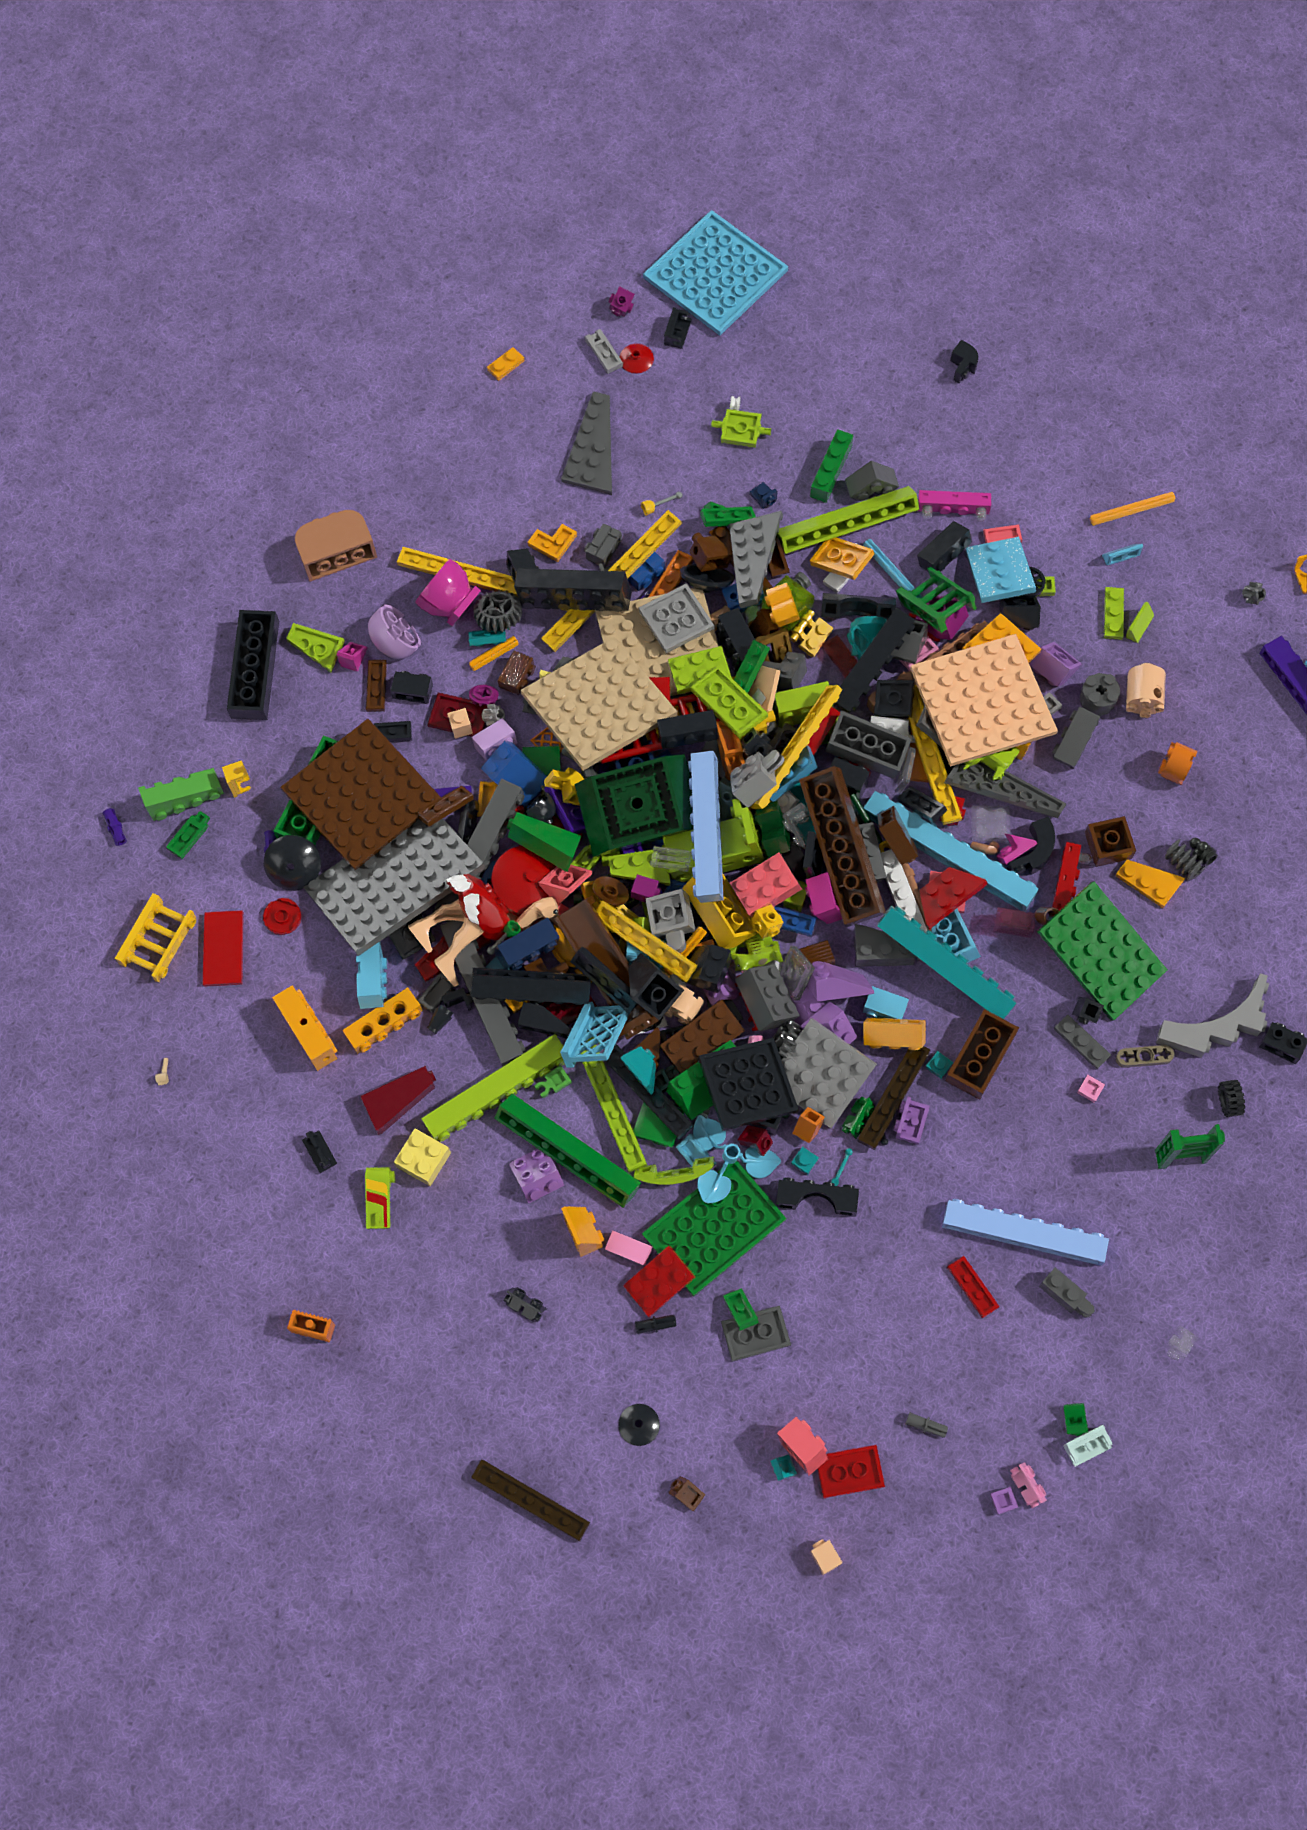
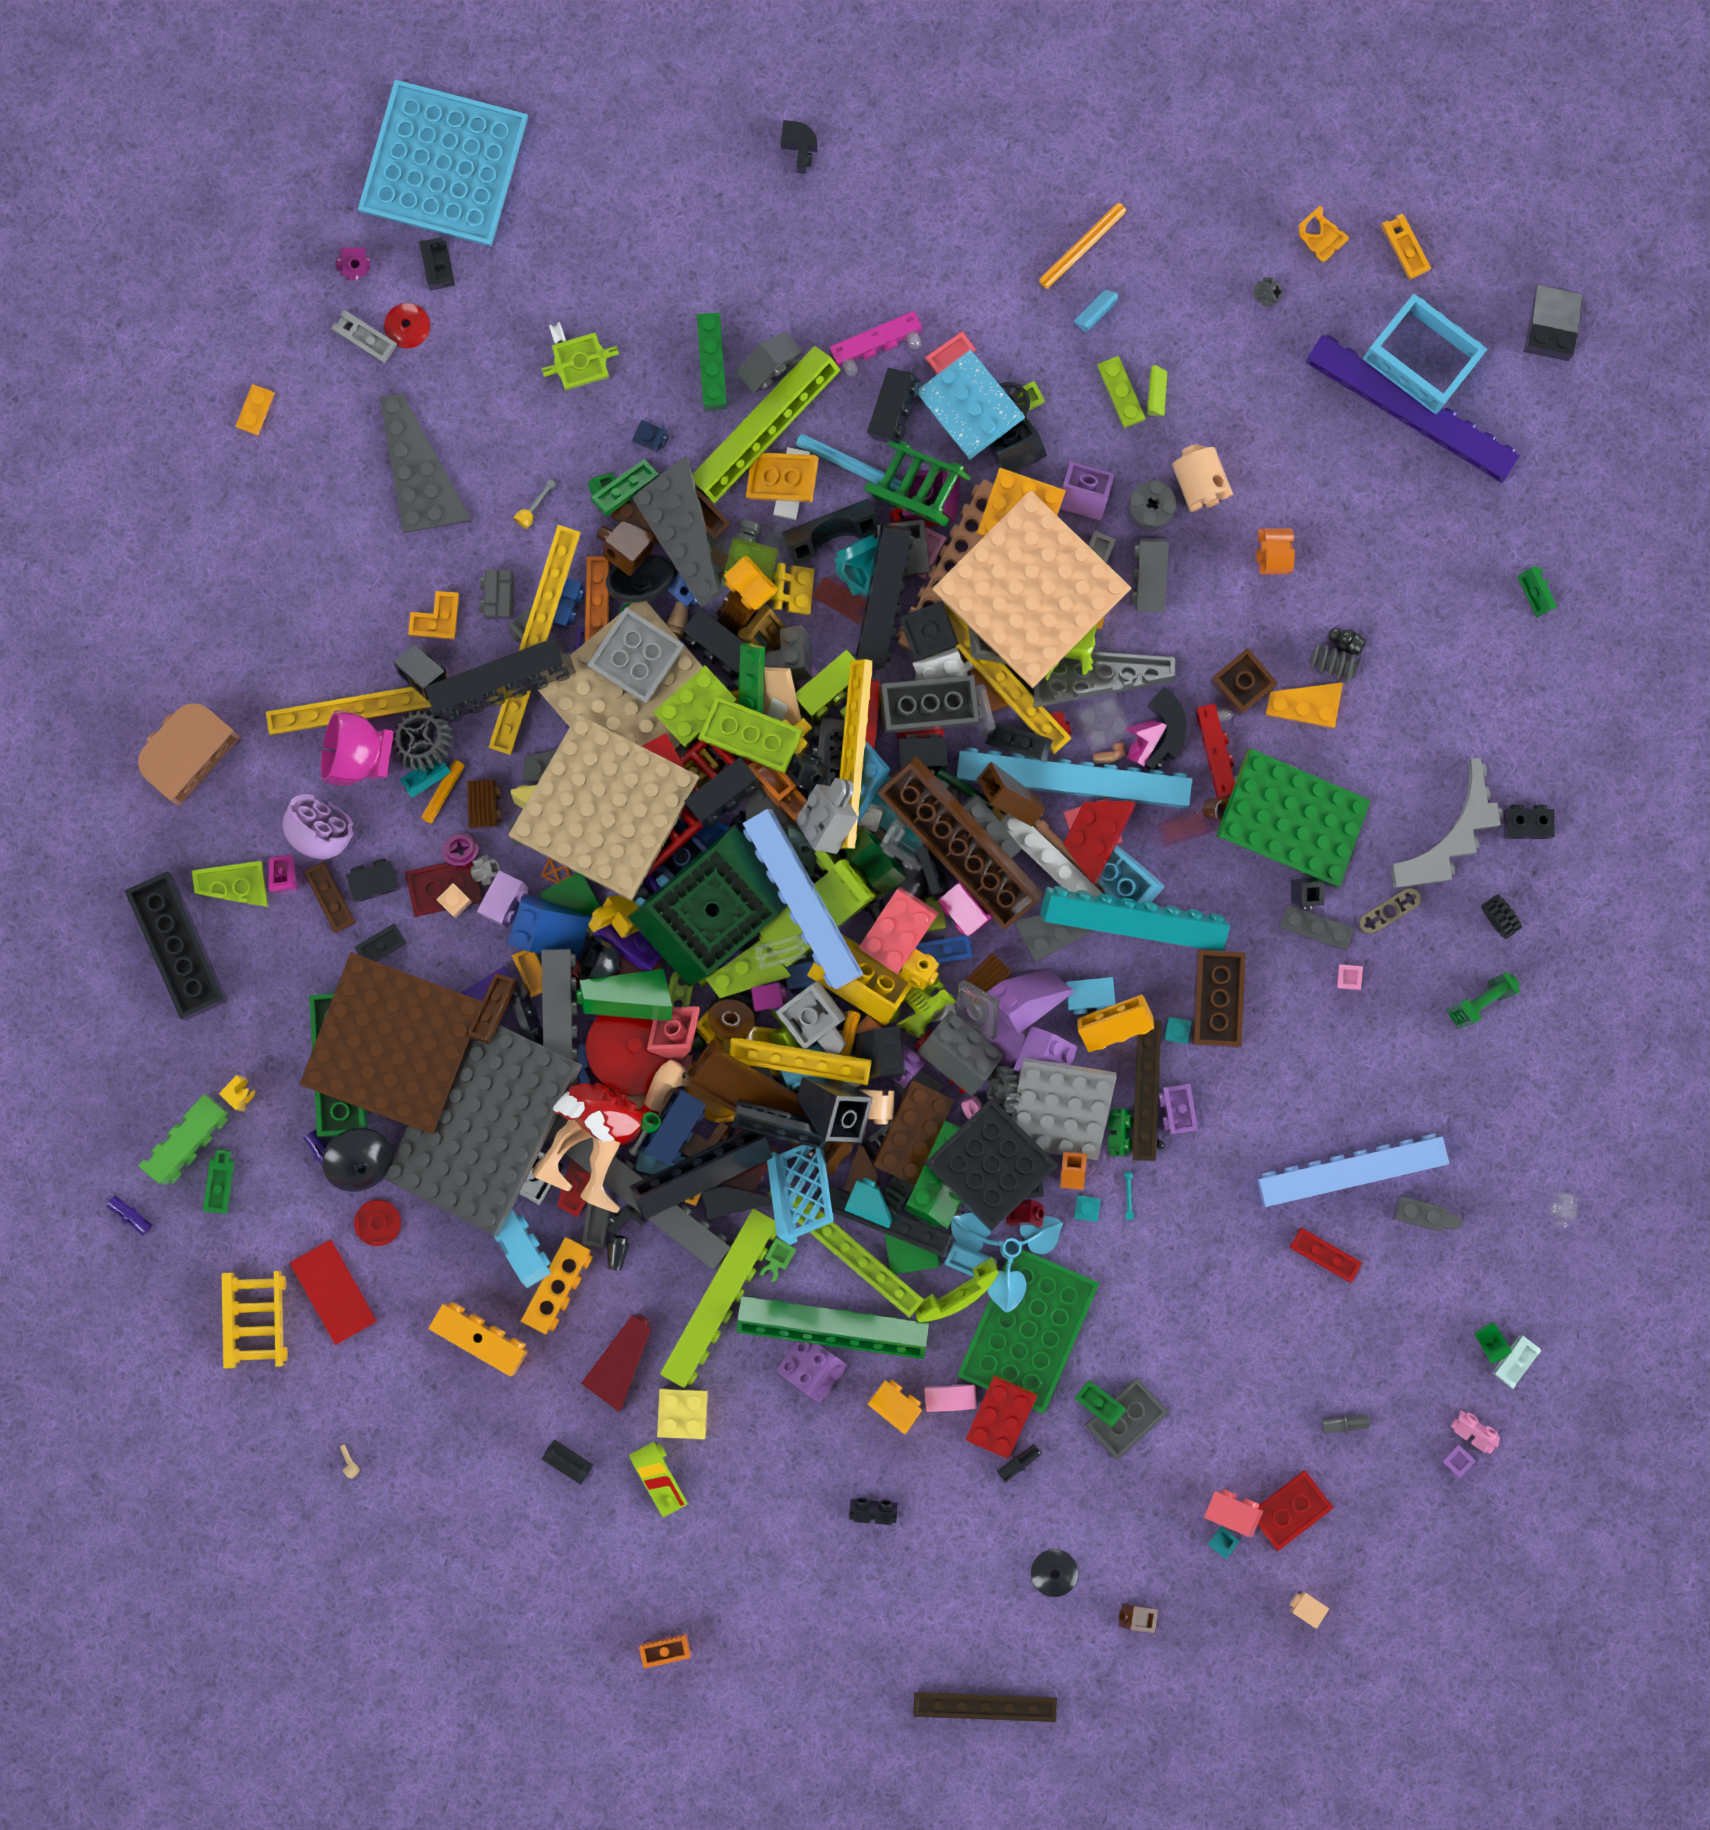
camera: 30 degrees left, 15 degrees up
(842, 1199) = (1148, 1232): black arch -> none

